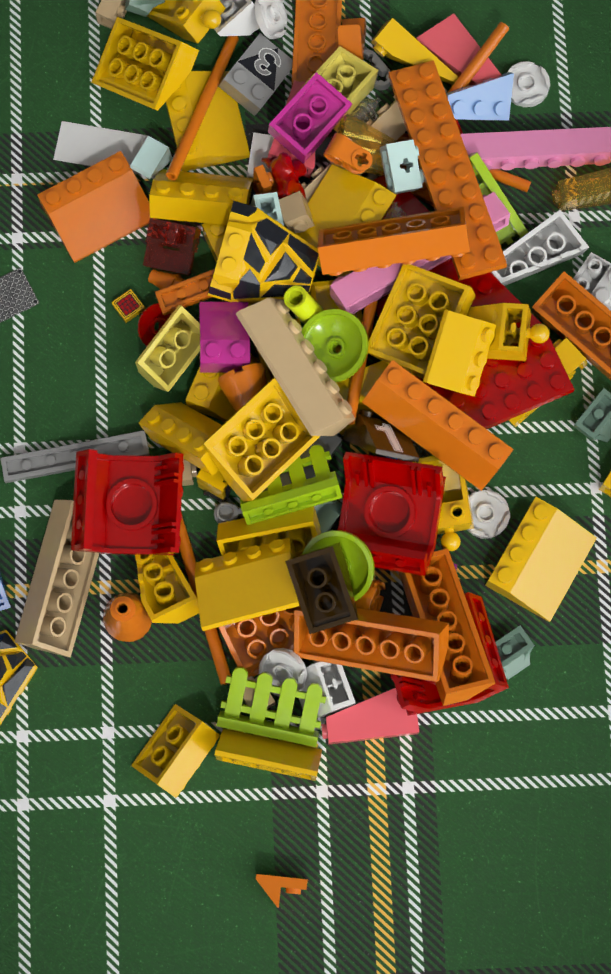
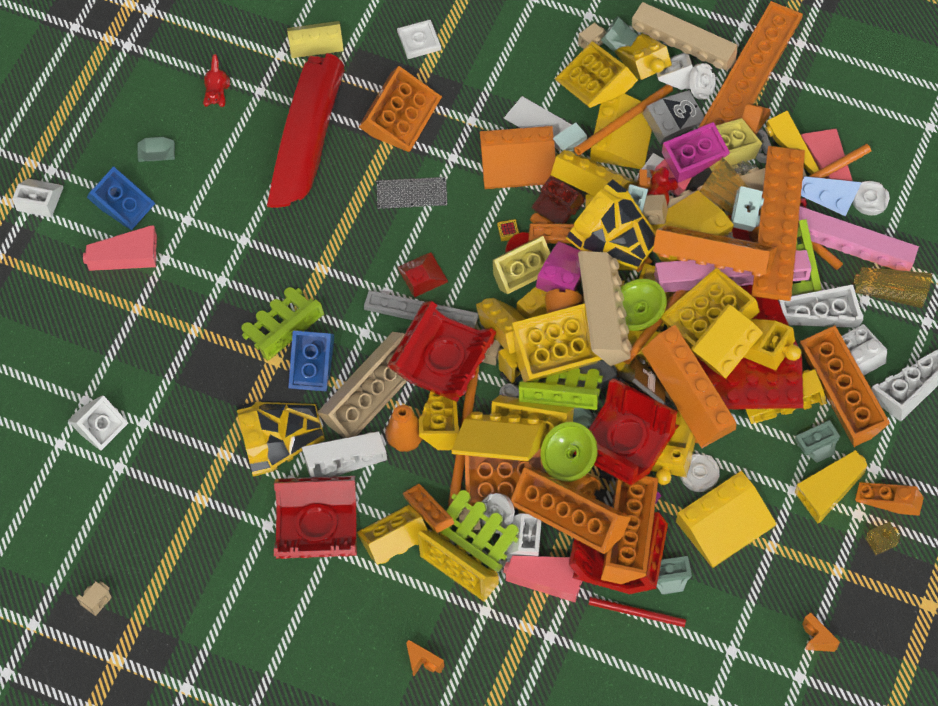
camera: 30 degrees right, 15 degrees down
(53, 406) = (422, 274): none -> red slope
(72, 681) = (344, 455): none -> white wedge
(77, 775) = (315, 517): none -> red panel
(204, 706) = (428, 508): none -> orange tile
(301, 303) = (629, 267): neon yellow pin -> none
(323, 587) = (551, 454): dark brown slope -> none
(345, 153) = (709, 182): orange piece -> none
(491, 714) = (637, 612): none -> red axle

